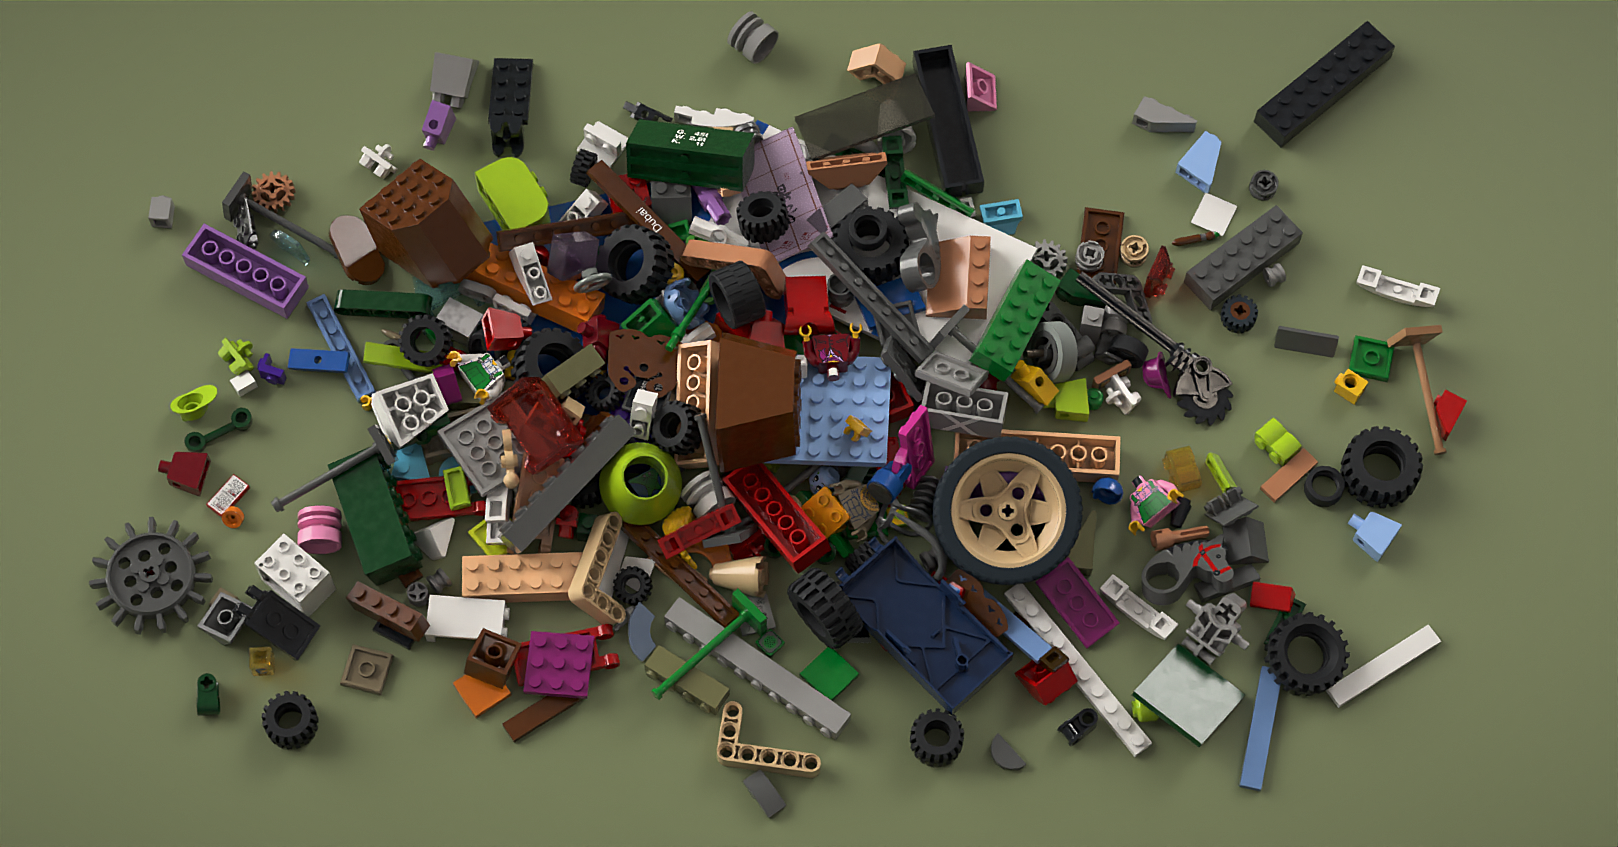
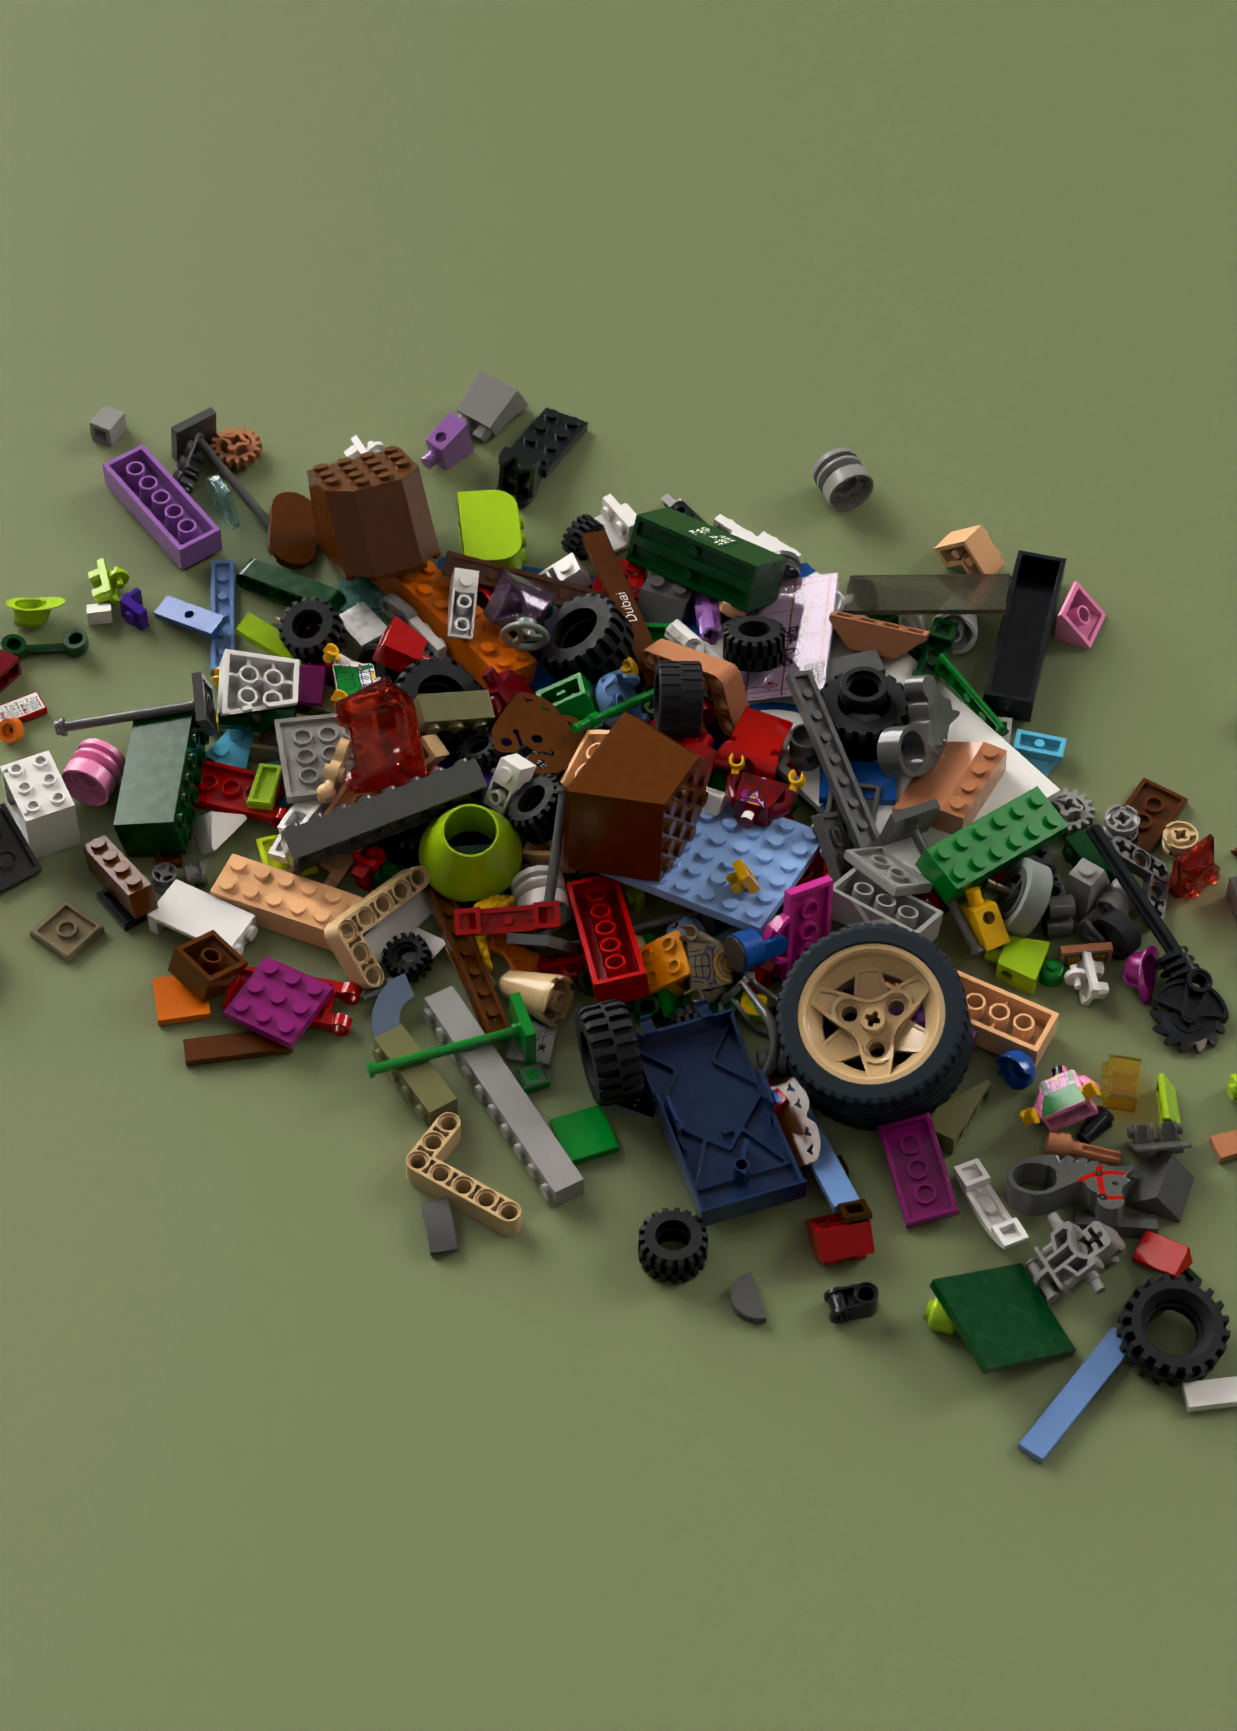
camera: 25 degrees right, 15 degrees down
(1088, 681) = (888, 1255): white plate -> none

